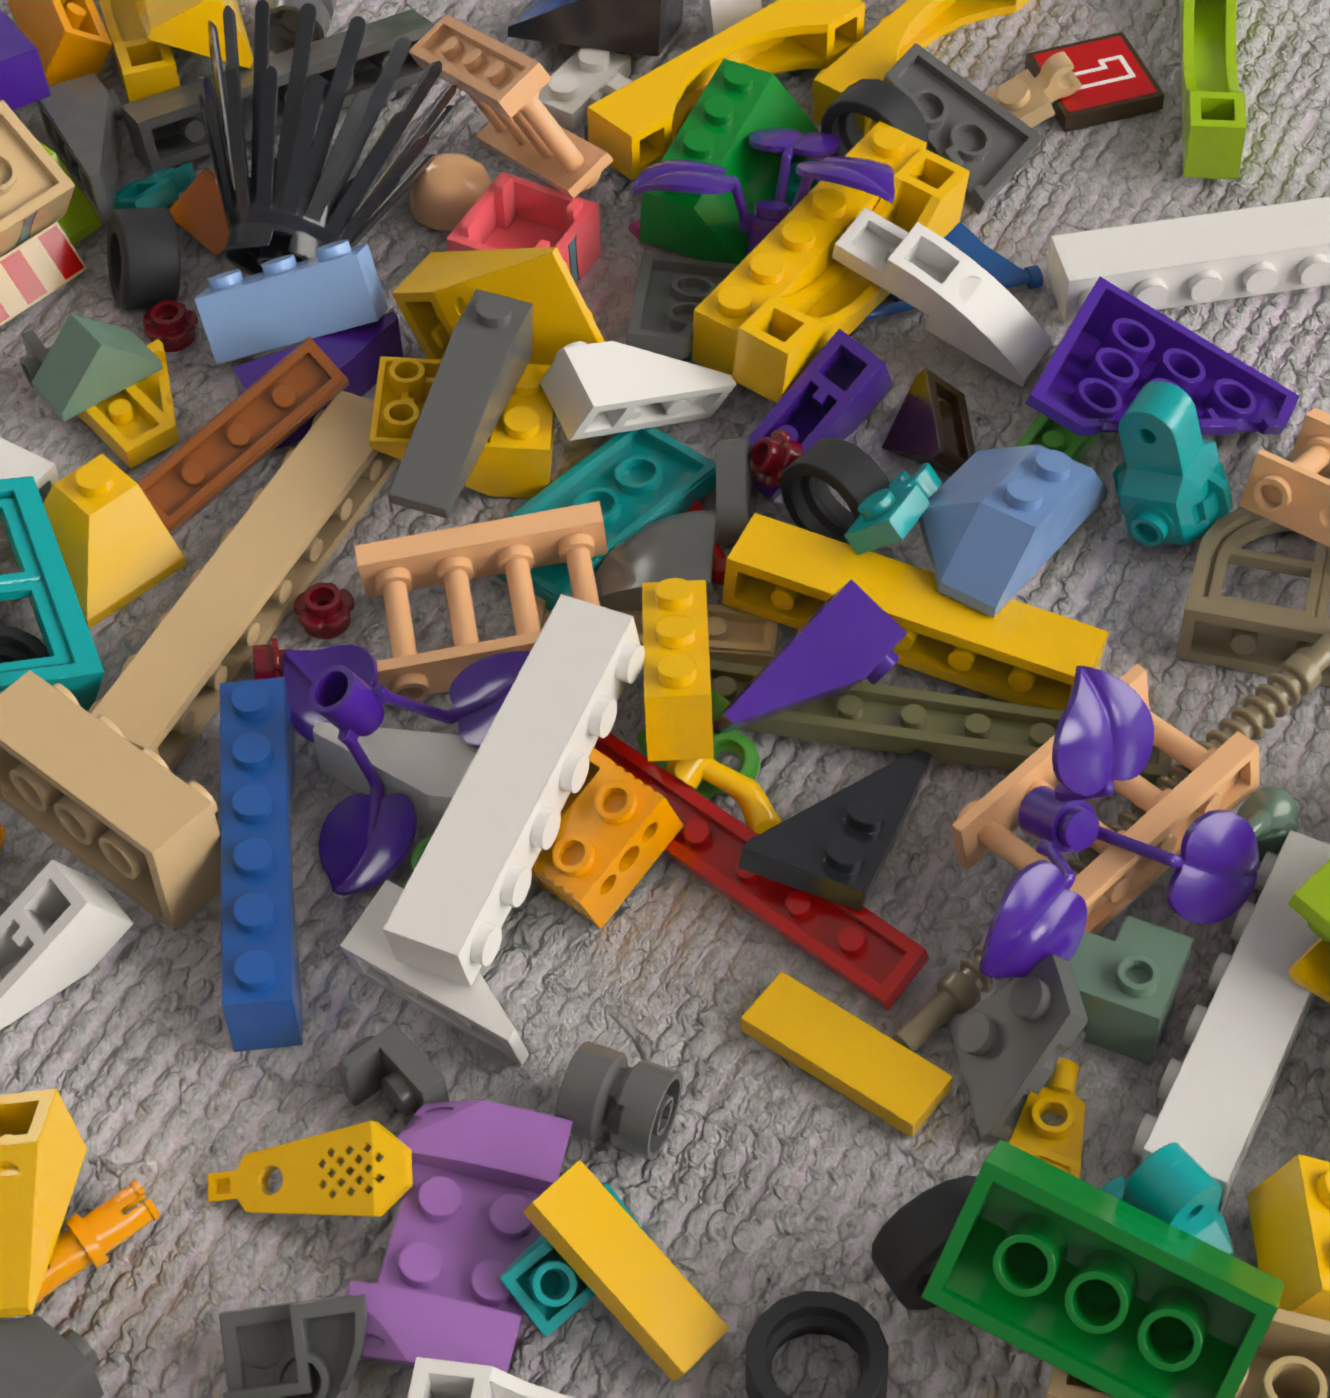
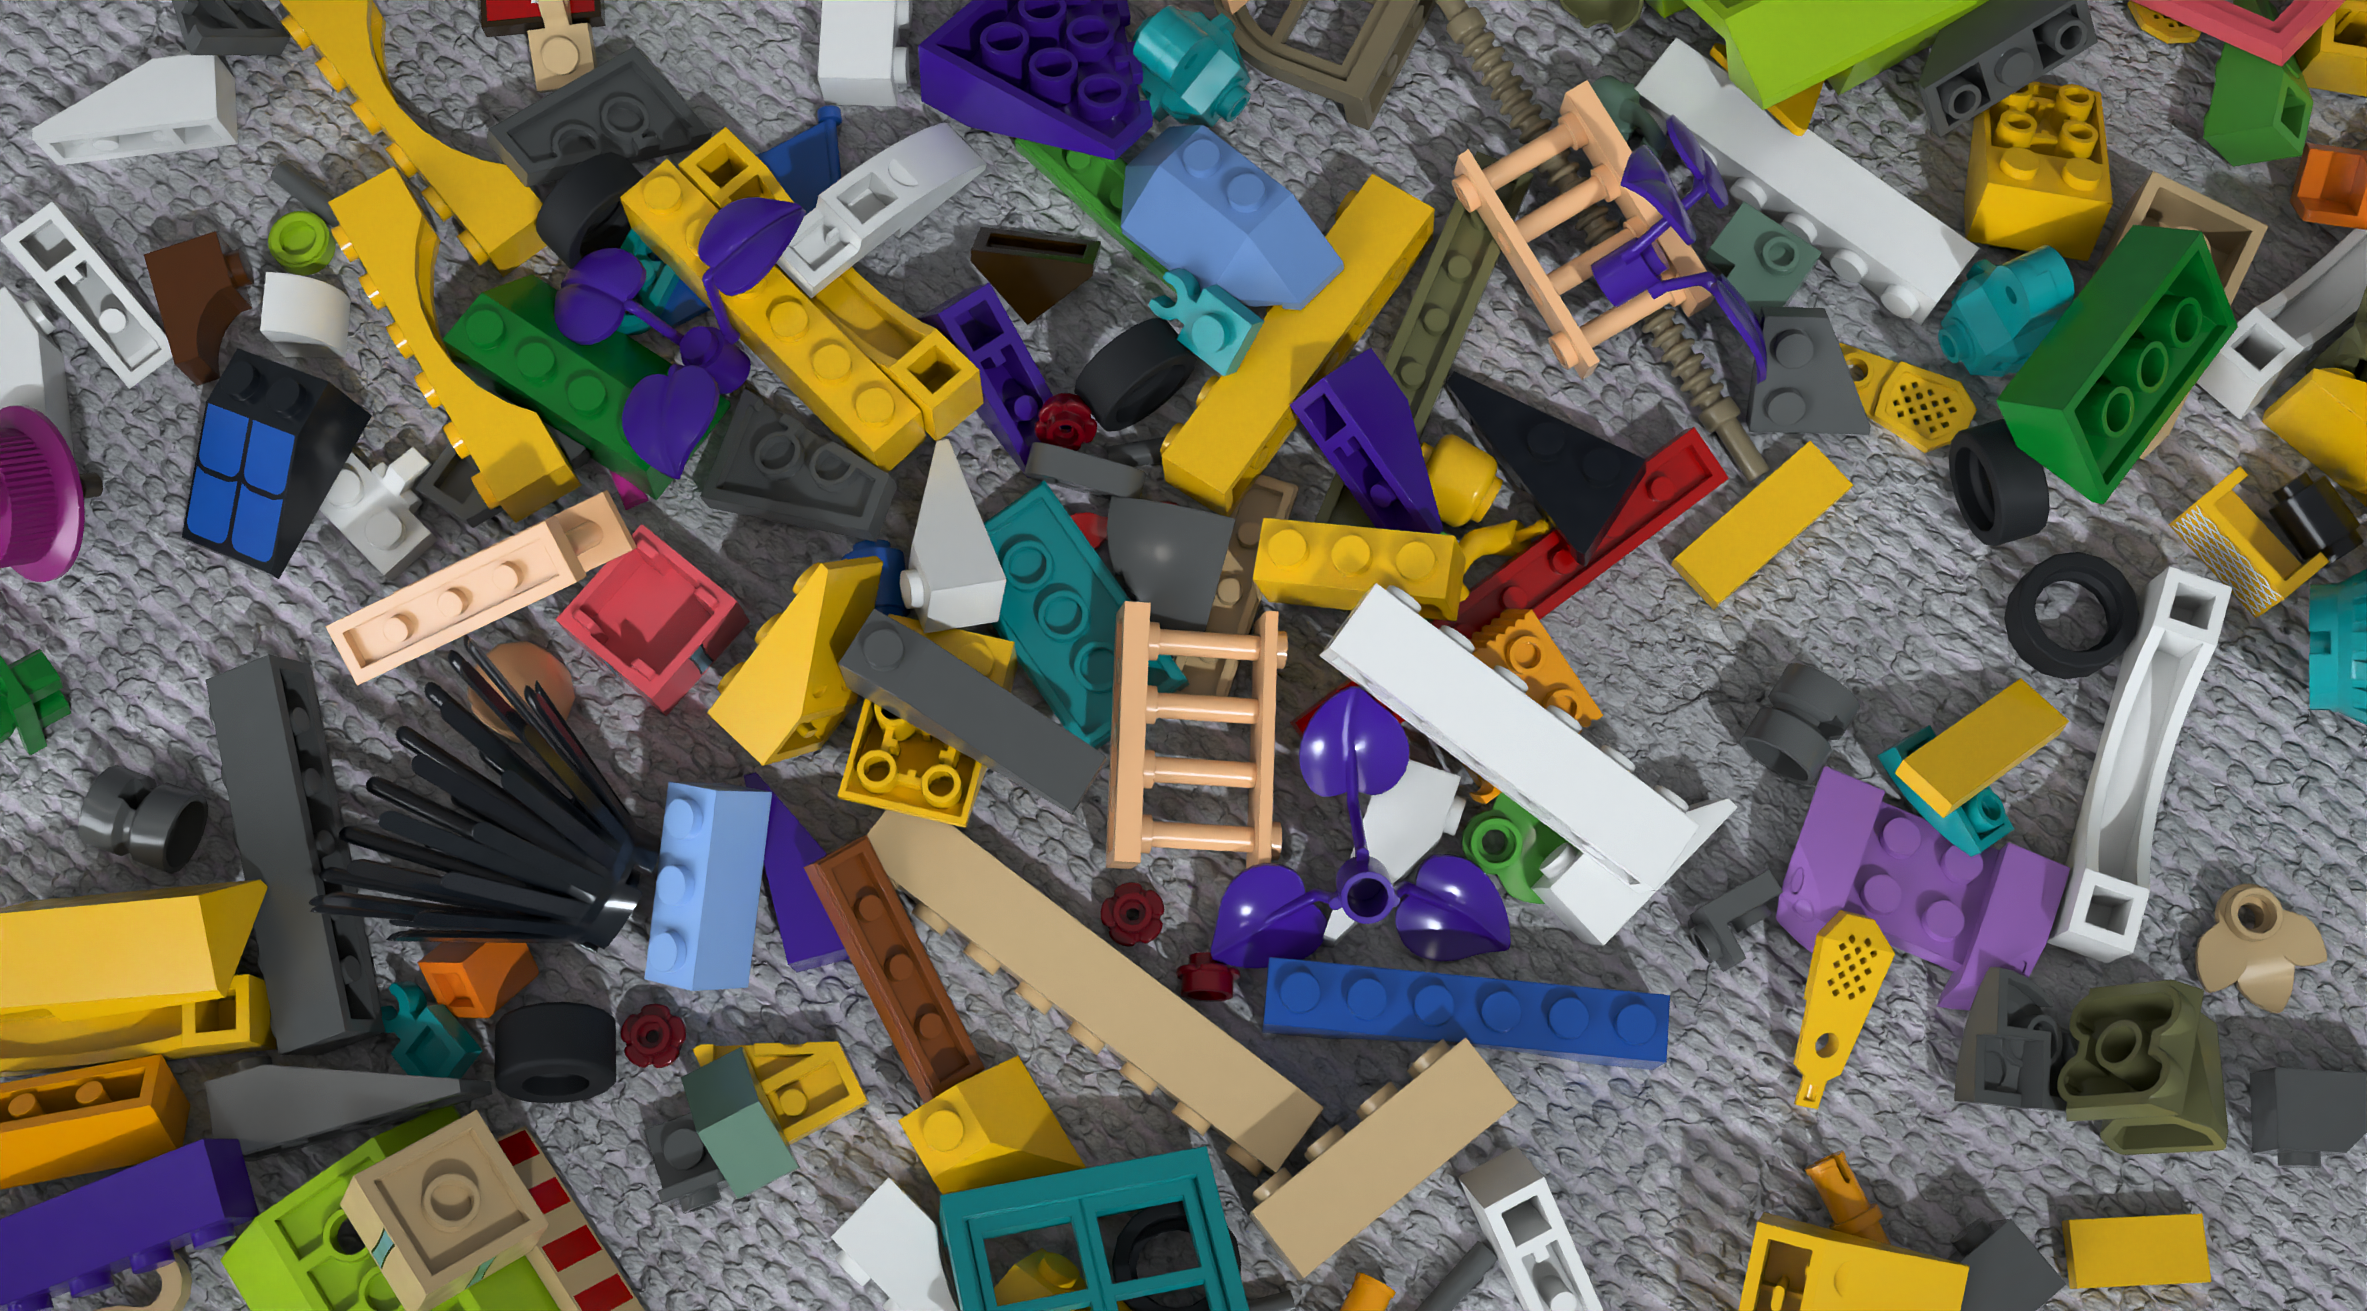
camera: 80 degrees left, 25 degrees up
(808, 762) = (1461, 479): none -> yellow head

